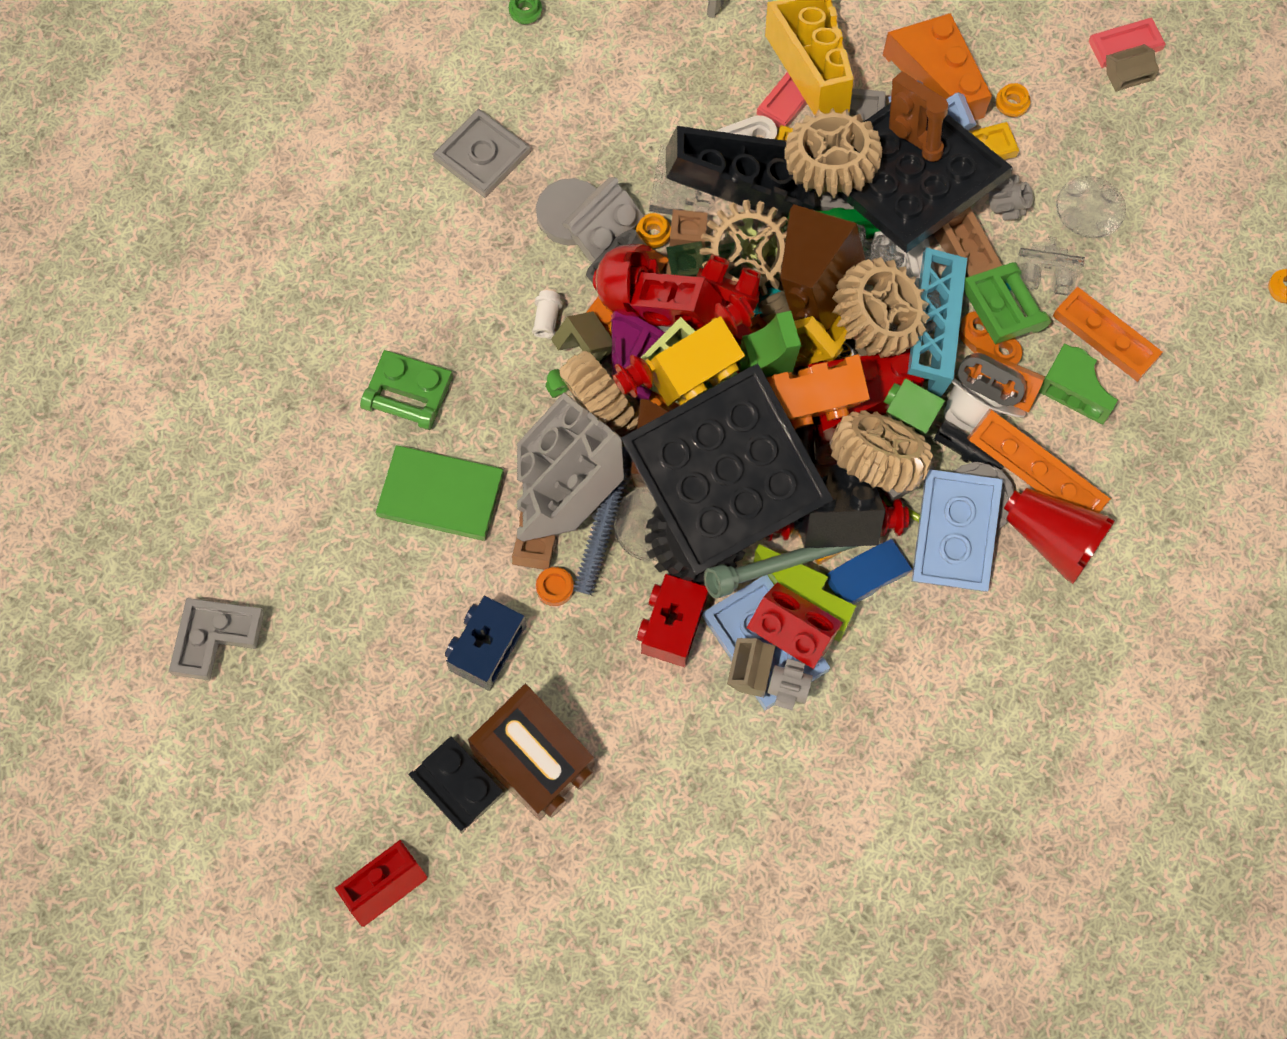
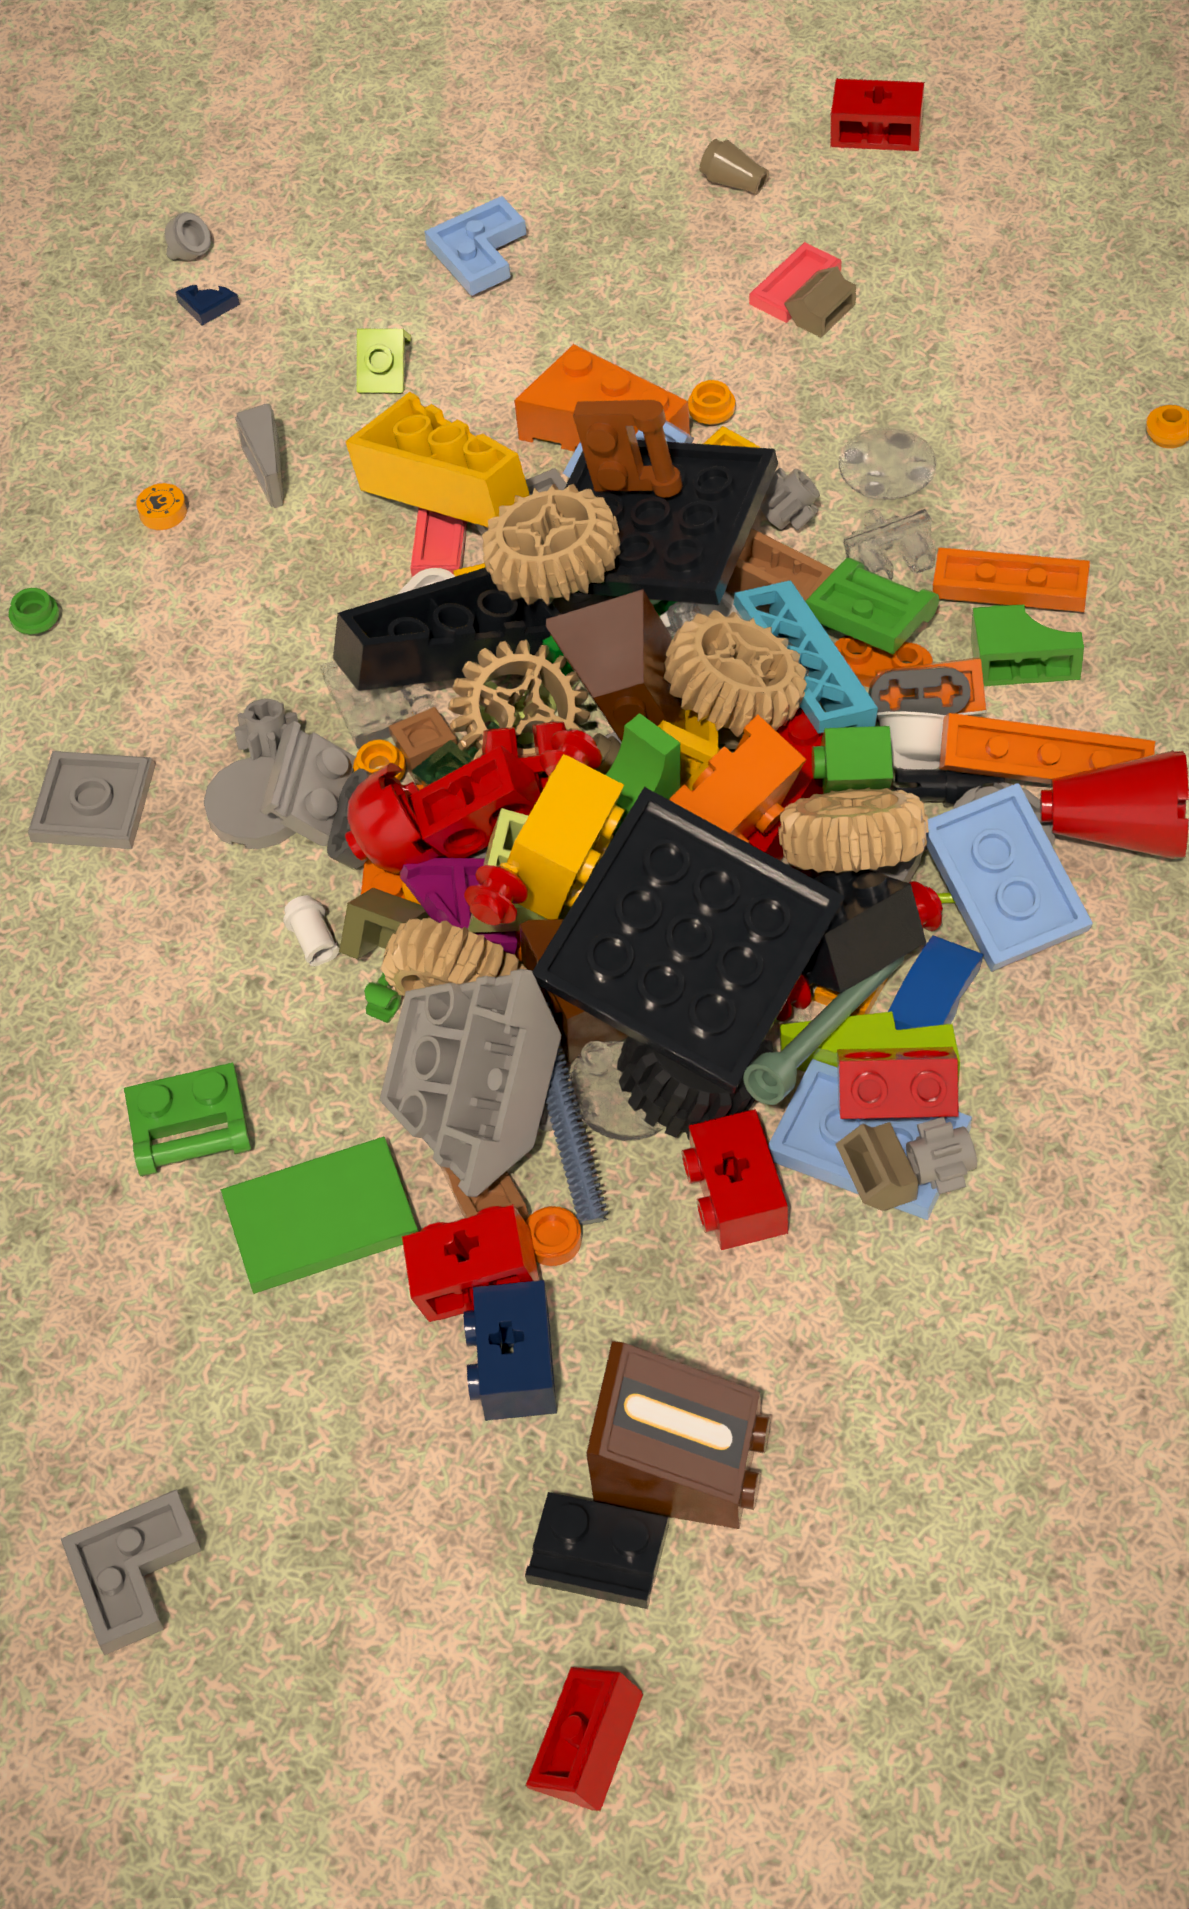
camera: 25 degrees left, 15 degrees down
(498, 575) = (467, 1253): none -> red brick
(601, 166) = (262, 727): none -> light grey gear

